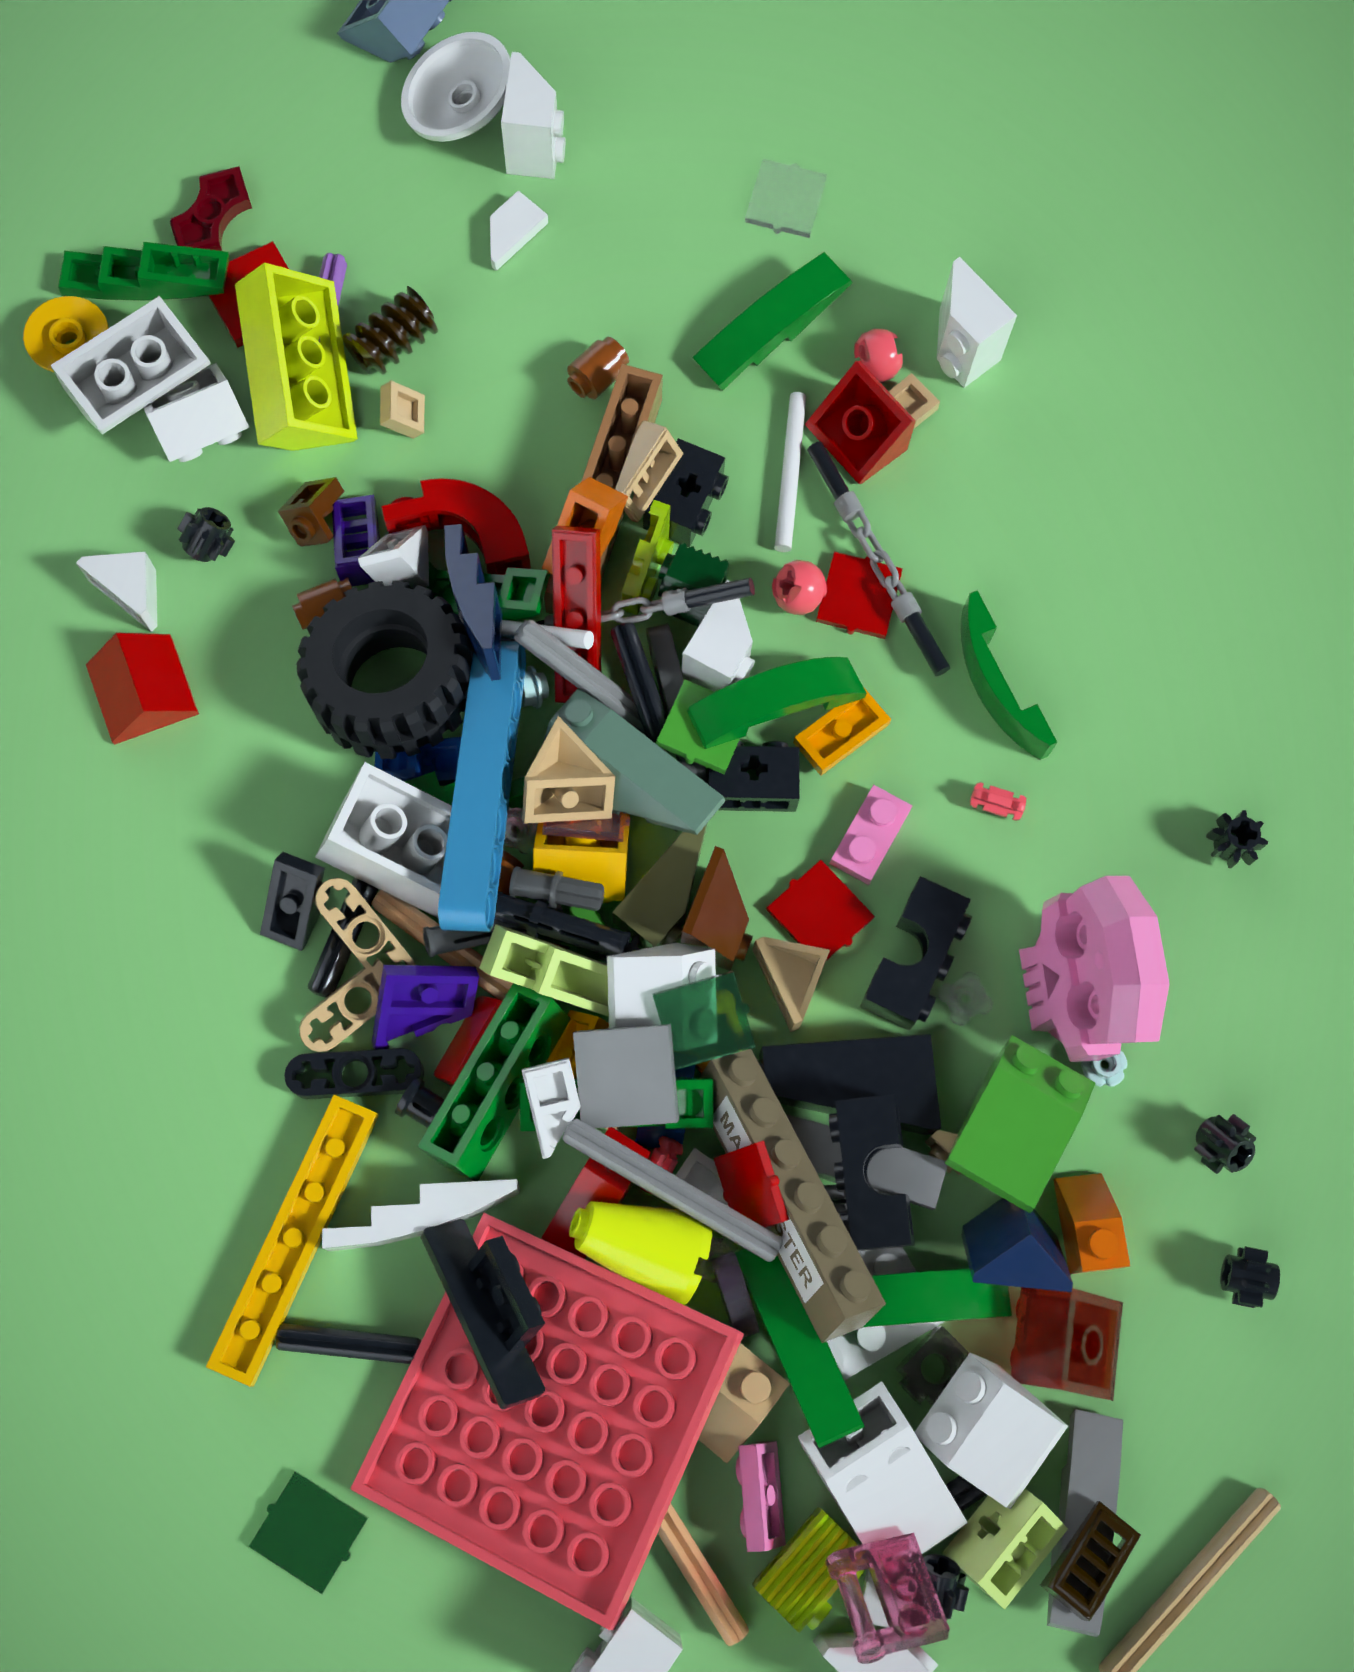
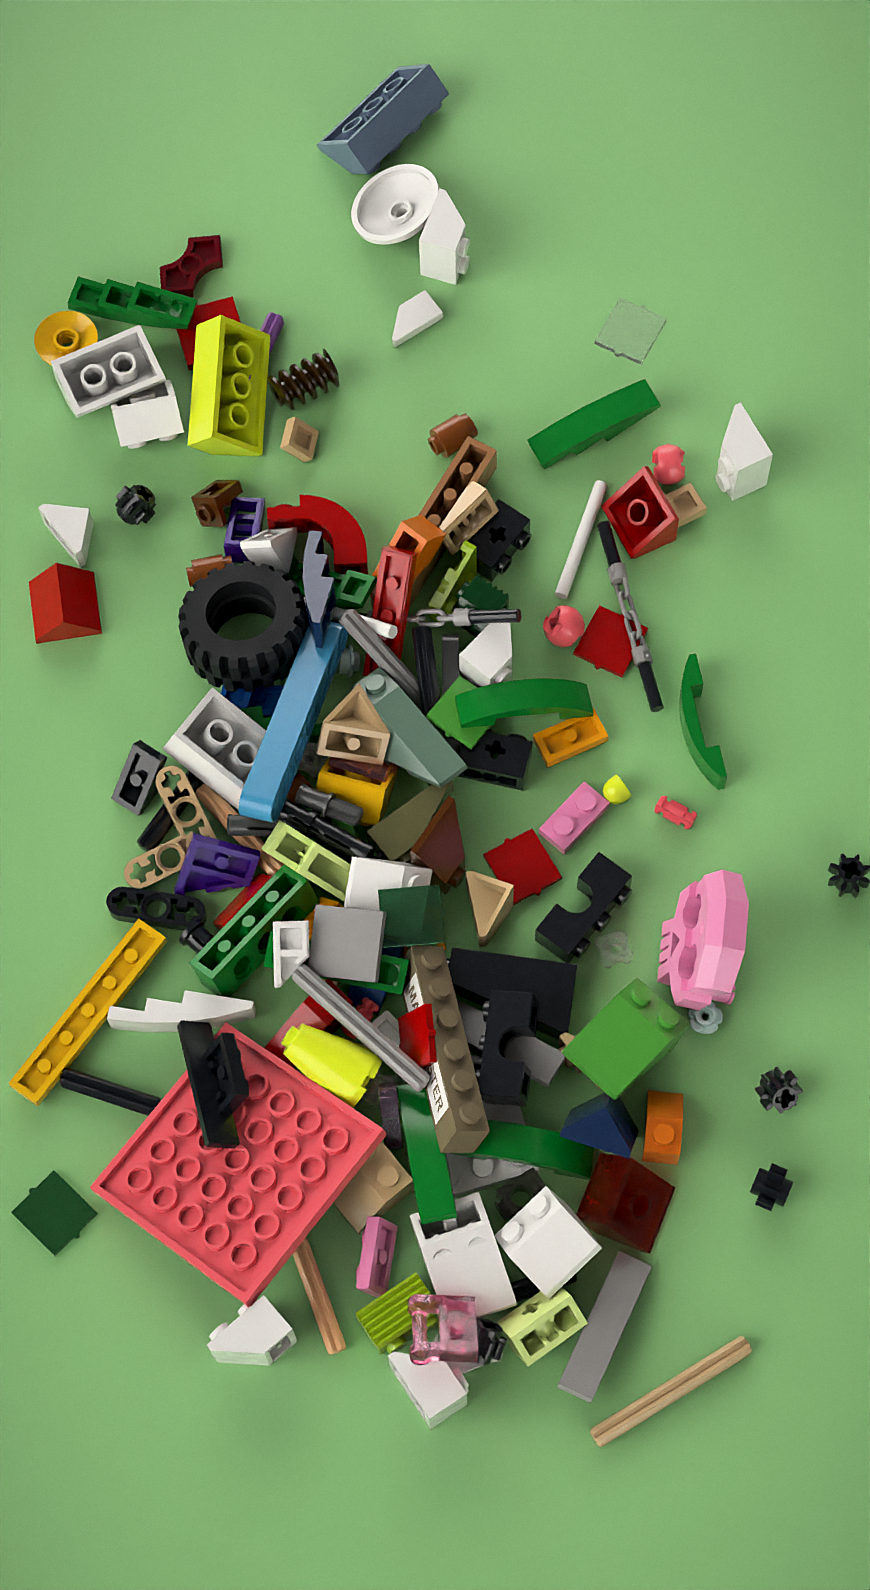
camera: 20 degrees right, 5 degrees down
(916, 788) = (616, 791): none -> neon yellow hinge
(1055, 1583) = (576, 1366): dark brown slope -> none

